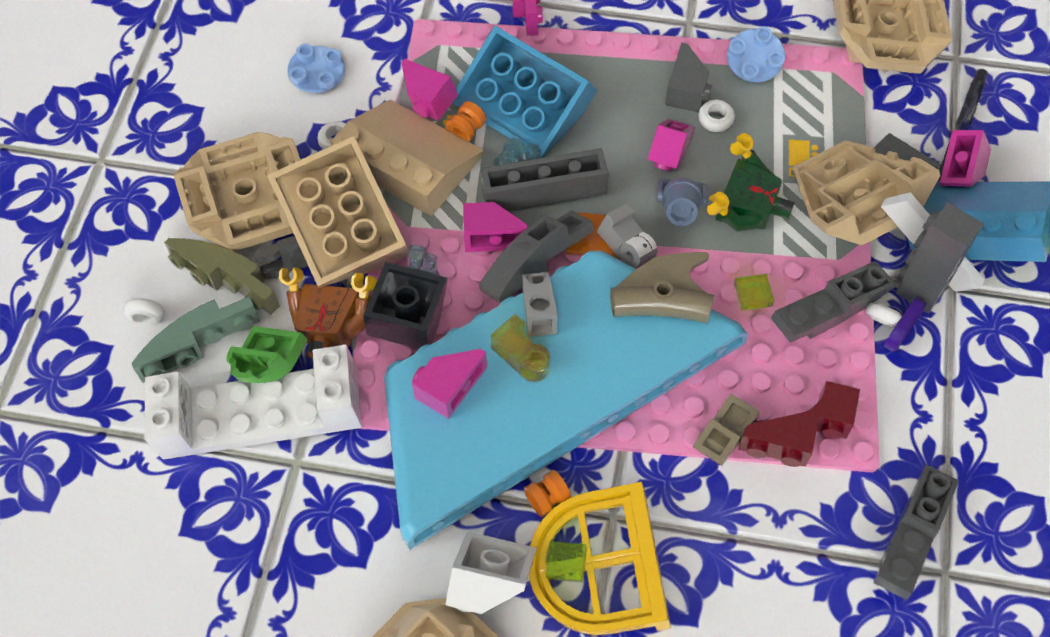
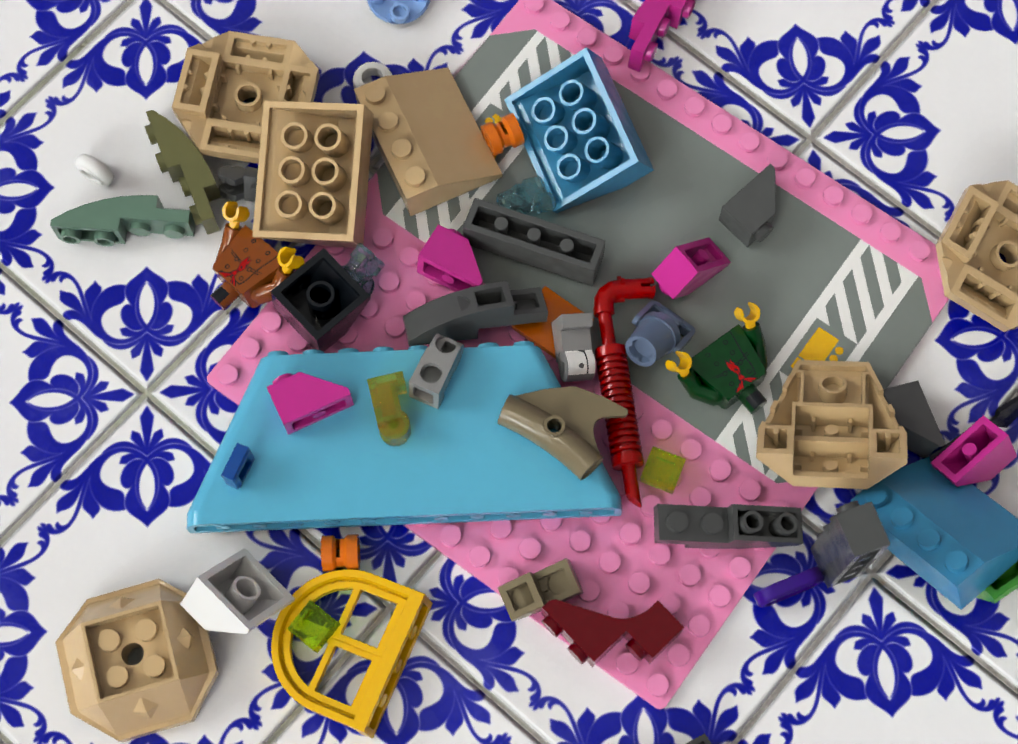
camera: 30 degrees right, 10 degrees up
(247, 414) = (133, 322): white plate -> none
(266, 355) = (171, 277): bright green slope -> none
(426, 461) = (238, 466): none -> blue tile
(428, 90) = (483, 80): dark pink slope -> none
(671, 242) = (616, 380): none -> red piece
(713, 124) = (762, 249): white piece -> none
(756, 55) = (846, 216): light blue dish -> none
(883, 314) = (773, 564): white piece -> none
(910, 218) = (851, 489): white tile -> none

